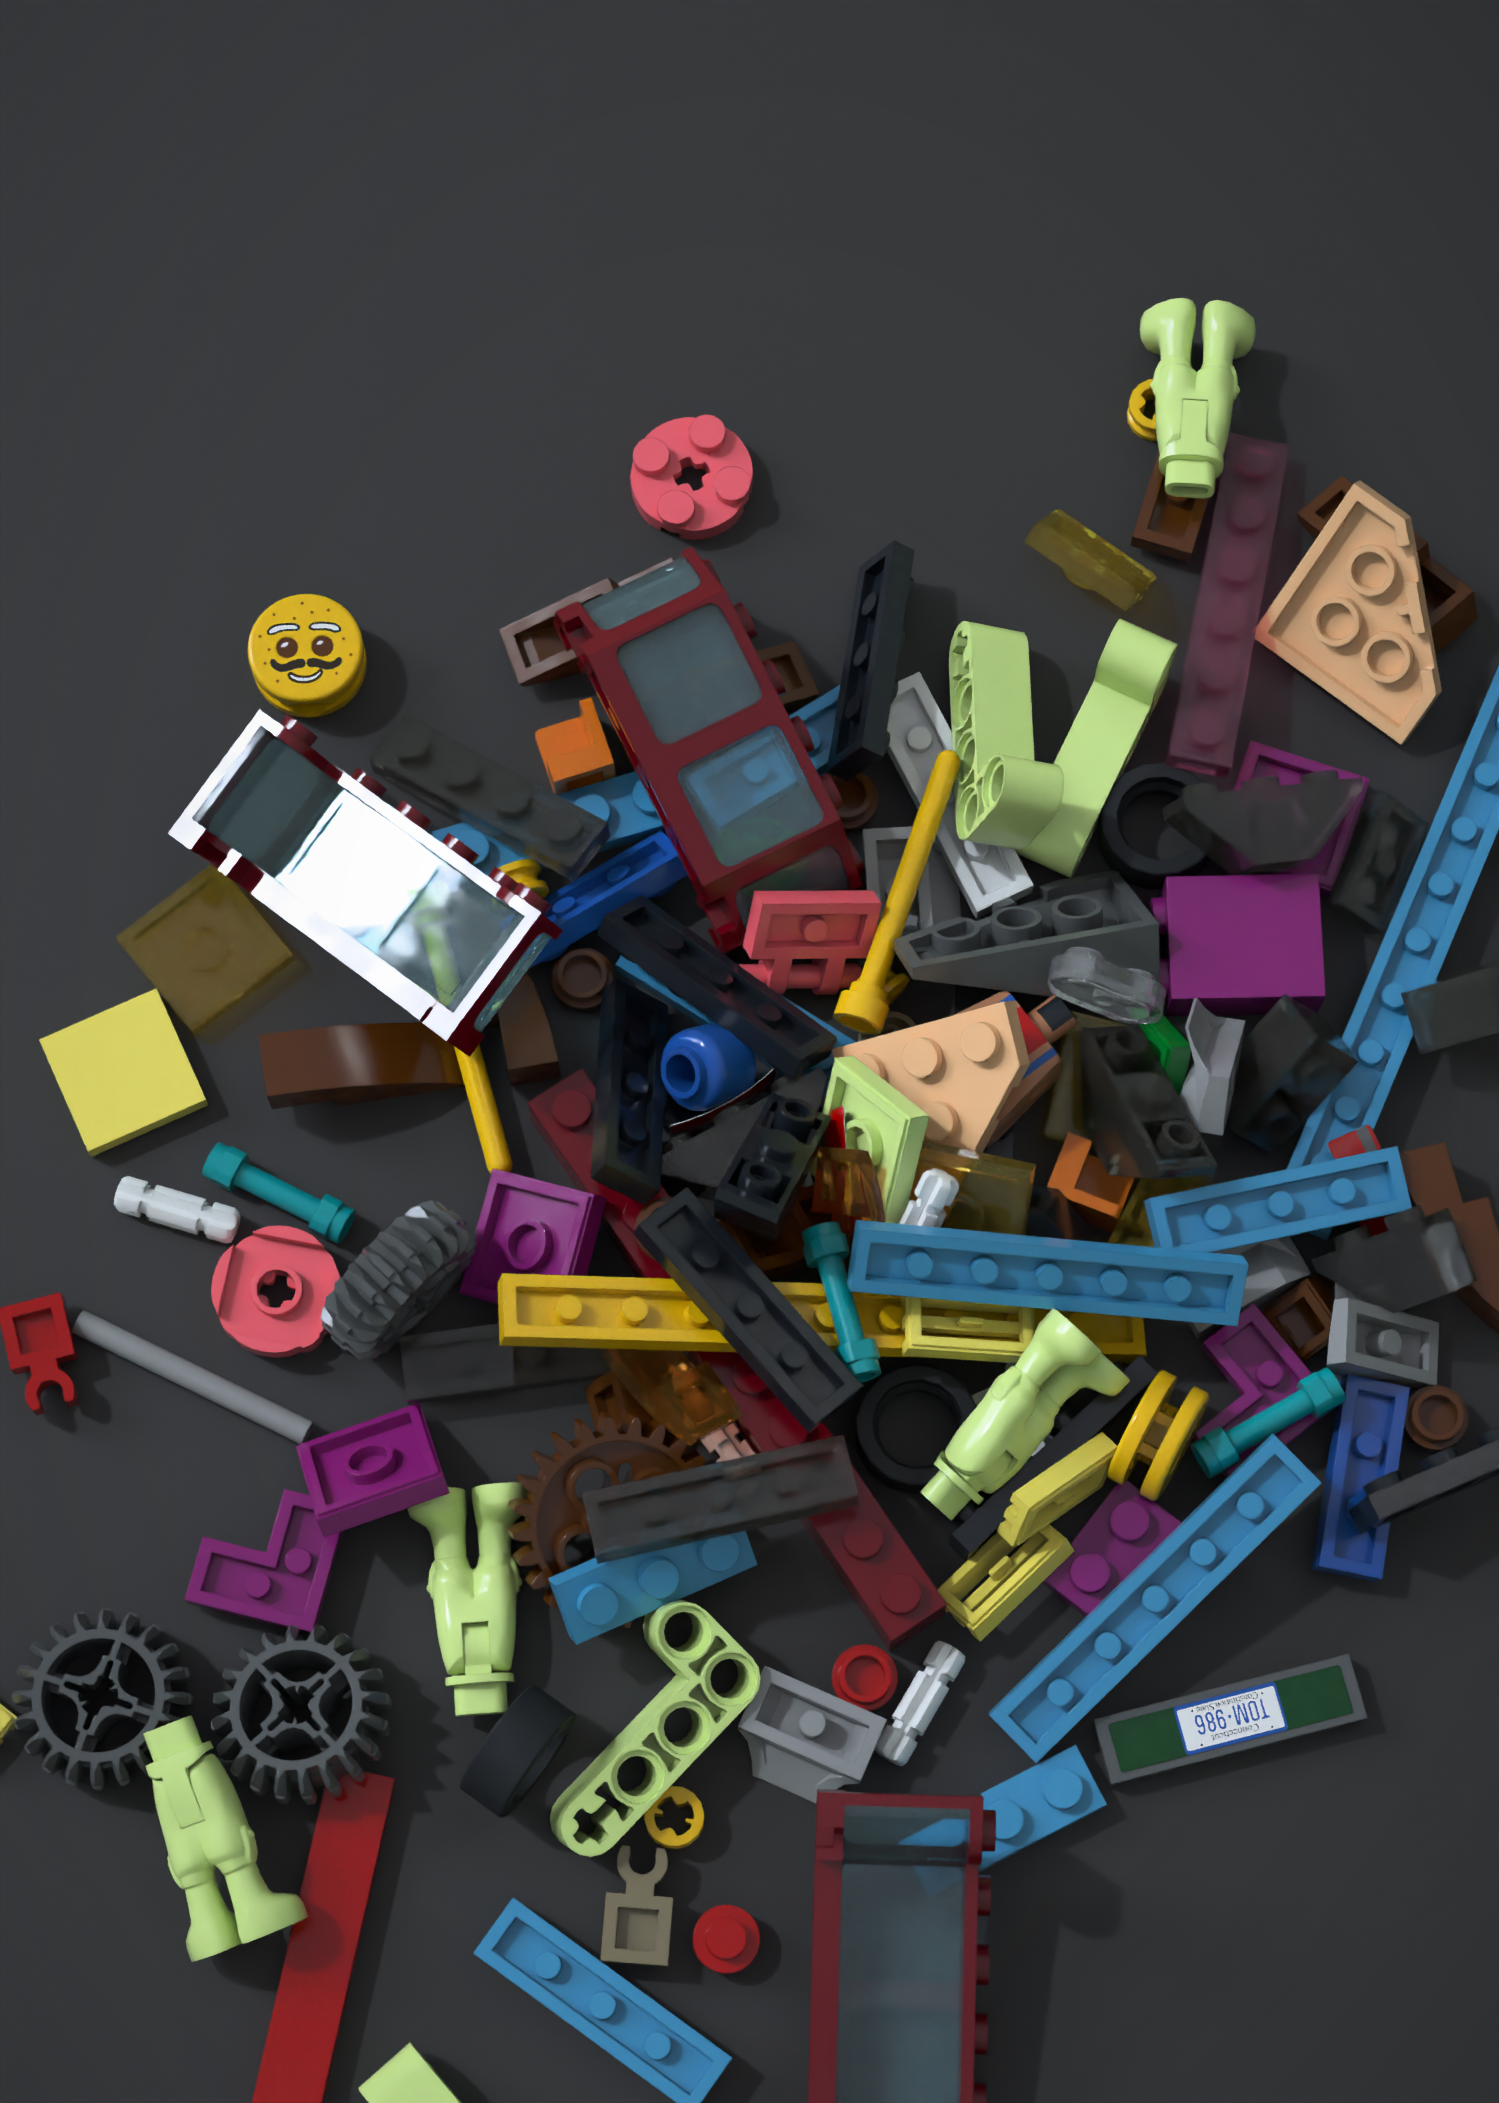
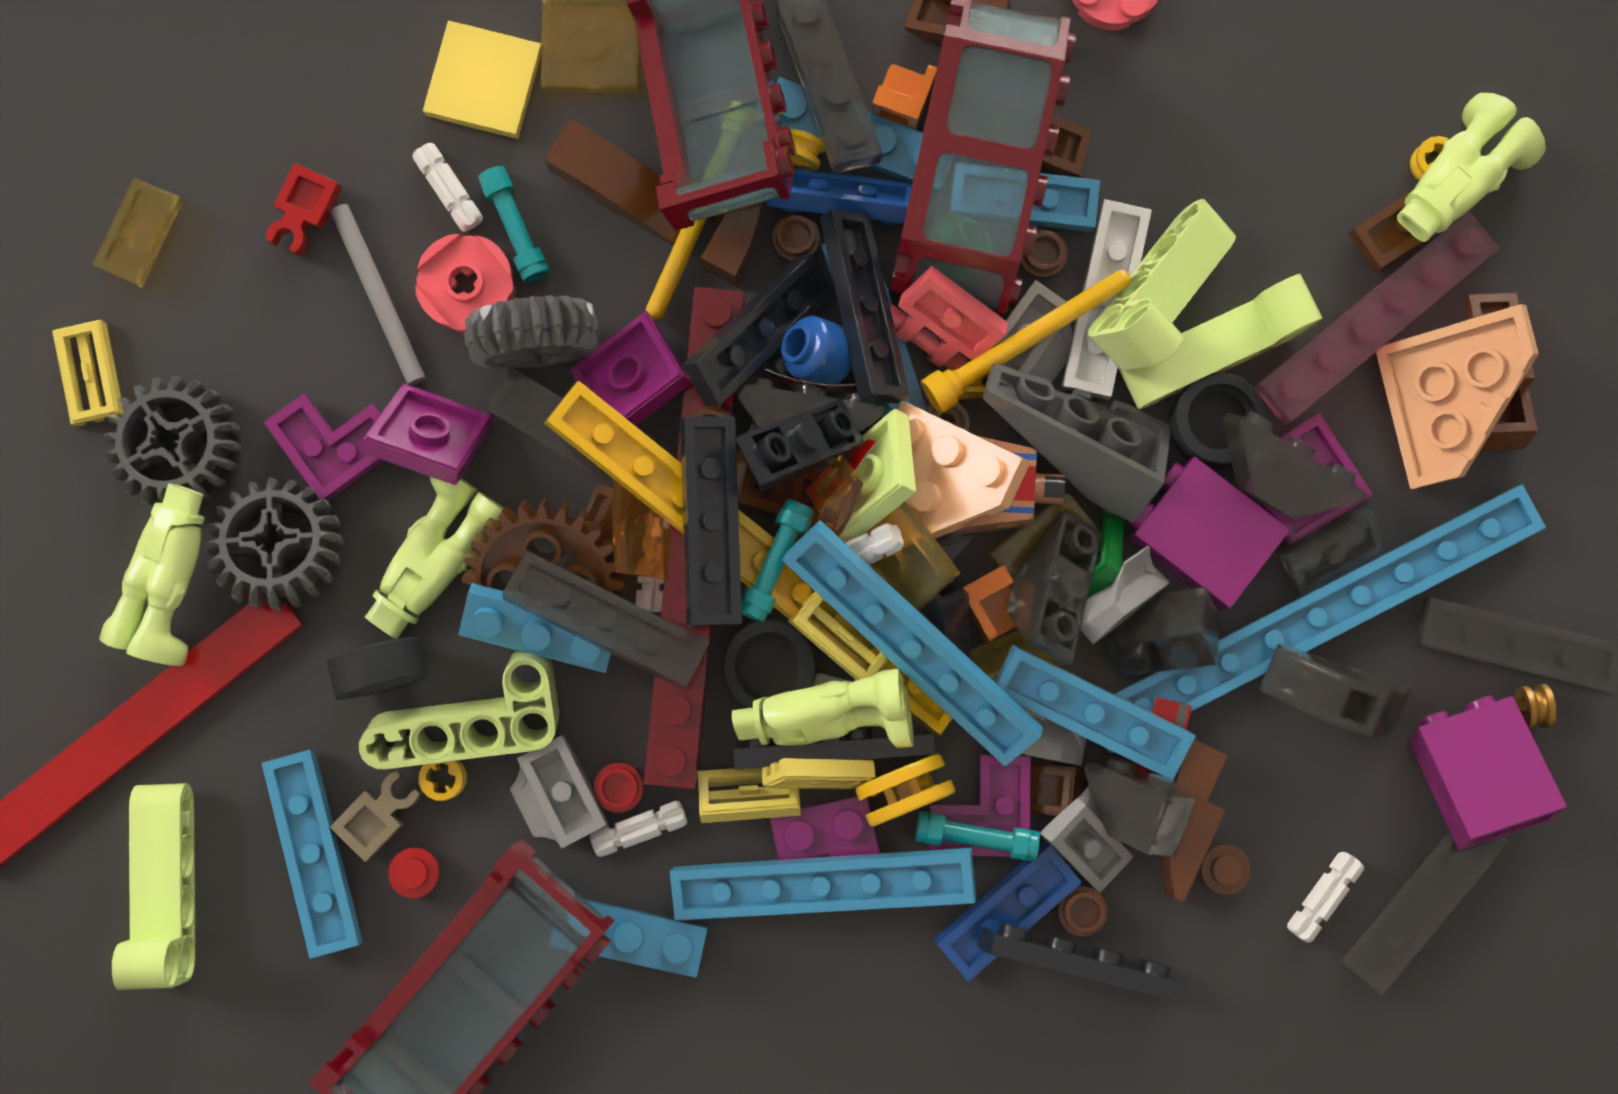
camera: 35 degrees right, 10 degrees up
(871, 661) = (1127, 178): black plate -> none
(1091, 560) = (1315, 223): clear yellow plate -> none
(1106, 988) = (1104, 506): clear plate -> none
(1229, 1720) = (811, 987): tile -> none

